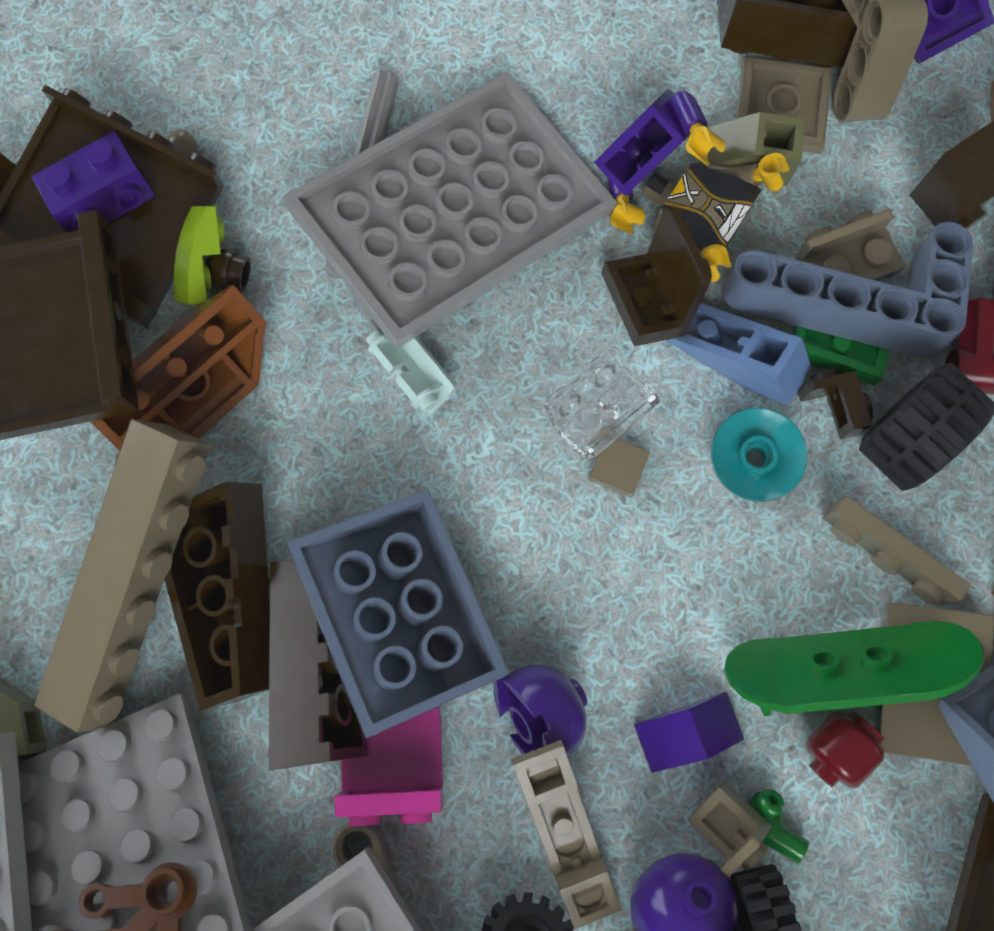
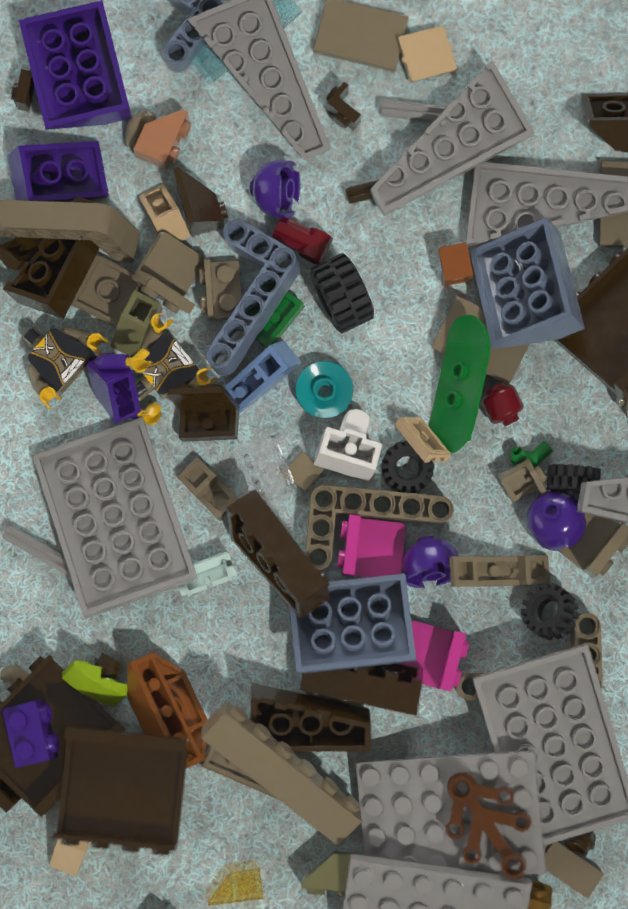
camera: 75 degrees left, 5 degrees up
(472, 456) = (276, 554): none -> dark brown wedge
(535, 607) = (371, 547): none -> dark pink bracket
(543, 333) = (207, 488): none -> dark tan slope
(592, 579) = (366, 510): none -> dark tan beam
(656, 58) = (59, 359): none -> torso
(680, 521) = (348, 448): none -> white brick
(689, 733) = (467, 484): dark purple slope -> none
(713, 621) = (397, 482): none -> black tyre
(738, 634) = (422, 439): none -> tan tile
(849, 405) = (312, 326): dark brown bracket -> none
(850, 166) = (169, 272): none -> dark tan bracket
(895, 553) = (404, 335): dark tan plate -> none
(924, 142) = (164, 212): none -> tan slope

